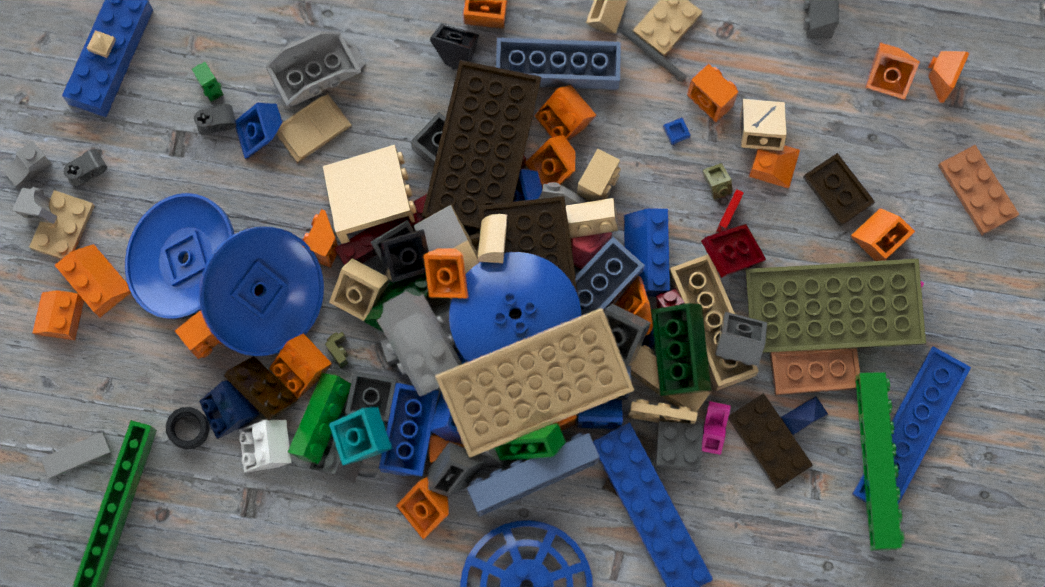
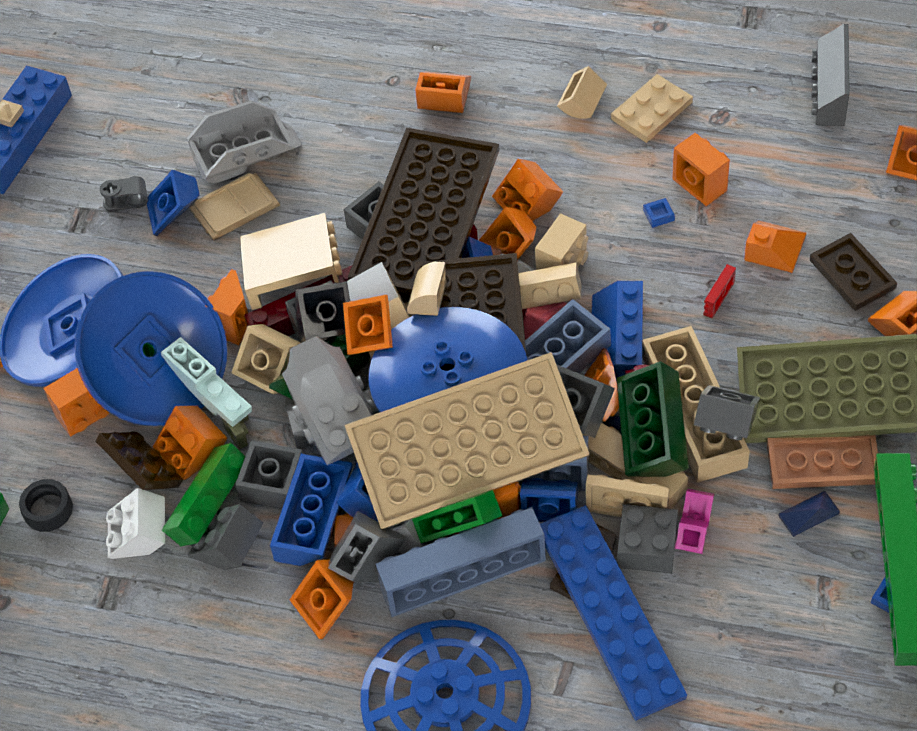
camera: 10 degrees right, 20 degrees down
(207, 81) = (121, 155): green piece -> none
(227, 409) = (97, 484): dark blue slope -> none
(310, 318) = (204, 383): none -> light aqua slope
(360, 435) = (250, 503): teal slope -> none
(454, 44) = (396, 121): black slope -> none
(563, 61) = (548, 140): sand blue brick -> none
(653, 53) = (635, 138): dark grey bar -> none
(718, 180) = (707, 260): olive bracket -> none
(733, 250) = (720, 325): dark red plate -> none
(763, 124) = (760, 200): tan brick -> none
(770, 441) = (765, 540): dark brown plate -> none

